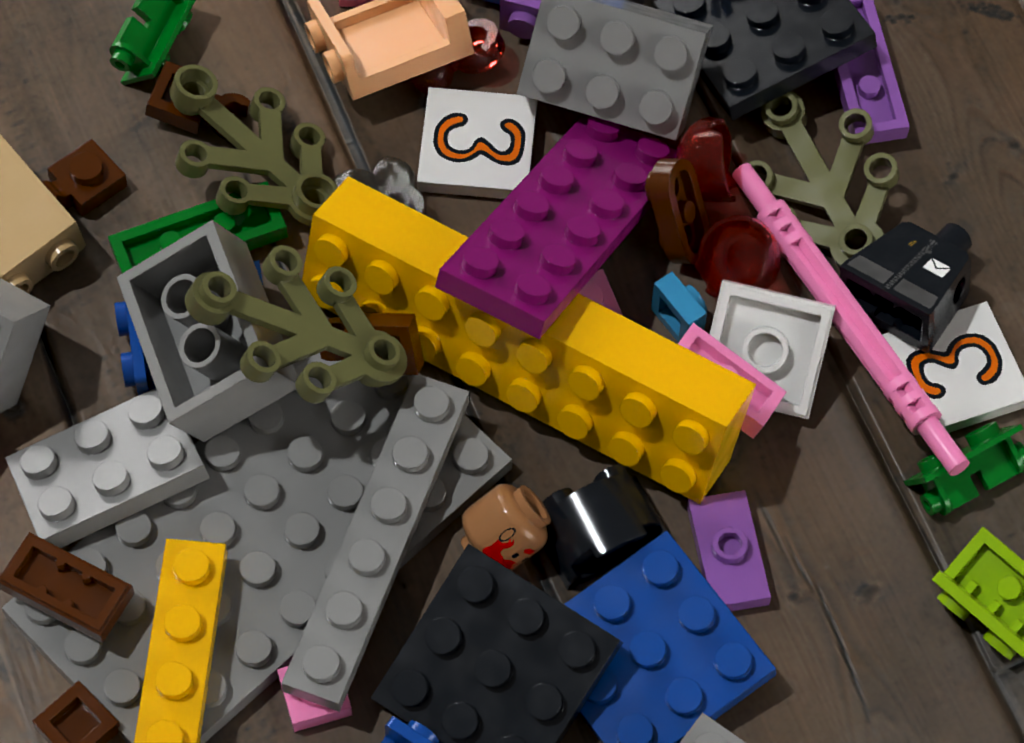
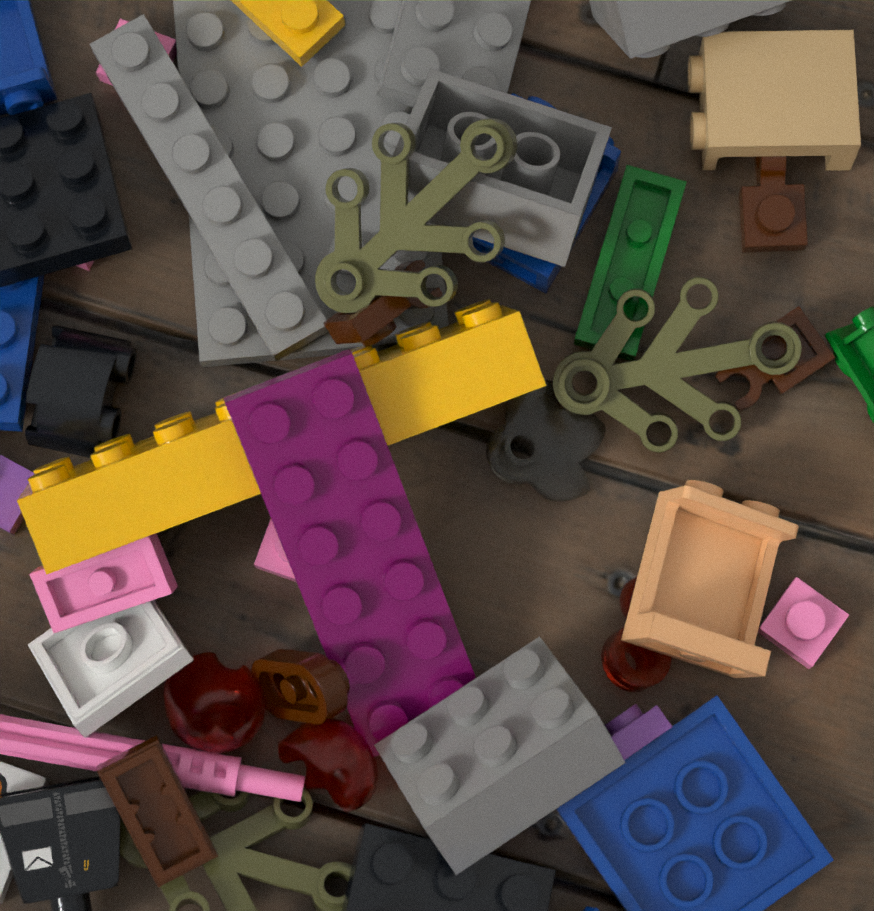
camera: 135 degrees right, 15 degrees up
(475, 142) = (536, 579): white tile -> none
(506, 524) = (137, 300): medium nougat head -> none
(677, 305) = (214, 616): dark azure plate -> none
(838, 226) = (157, 811): none -> reddish brown plate

